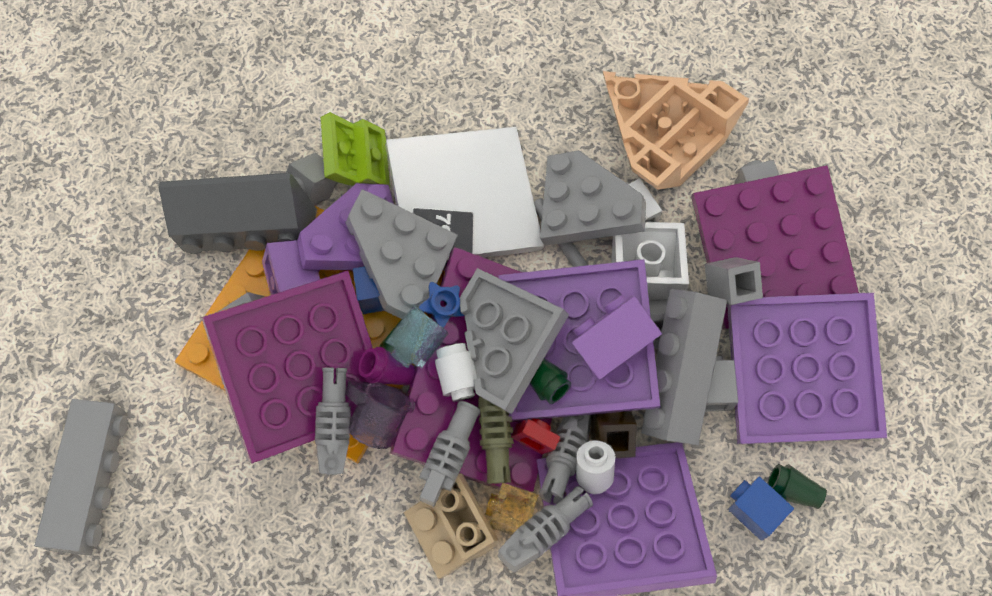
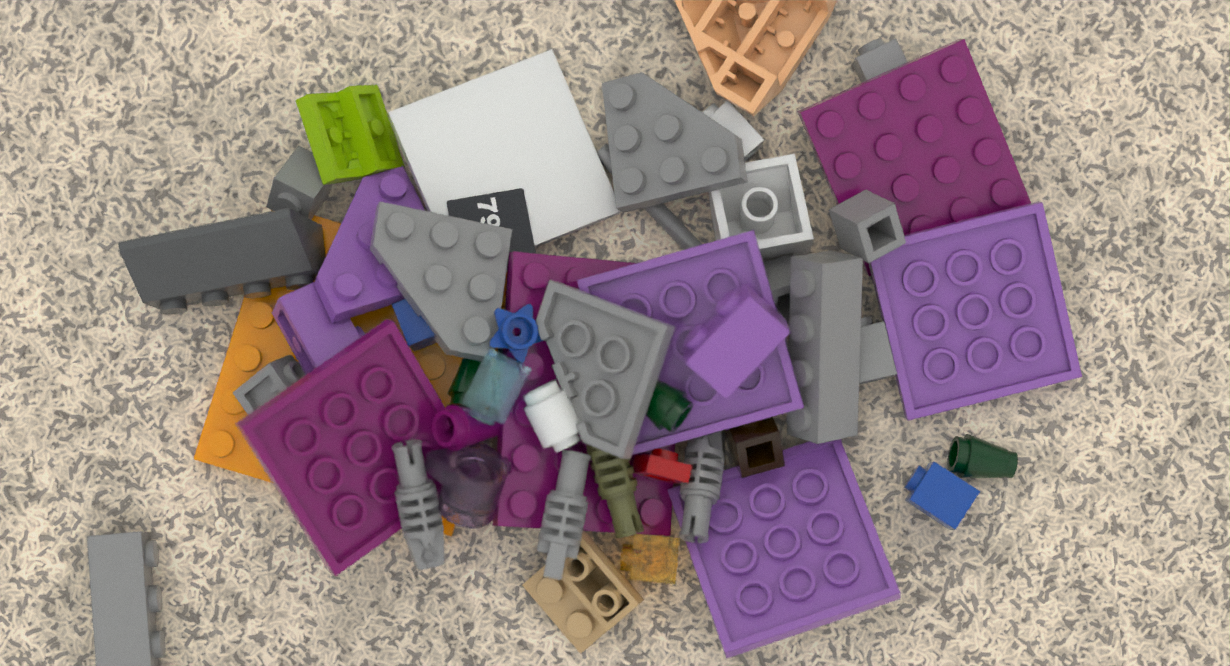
camera: 10 degrees left, 15 degrees up
(543, 530) = (694, 581): light grey hinge -> none
(595, 466) = (739, 492): white brick -> none

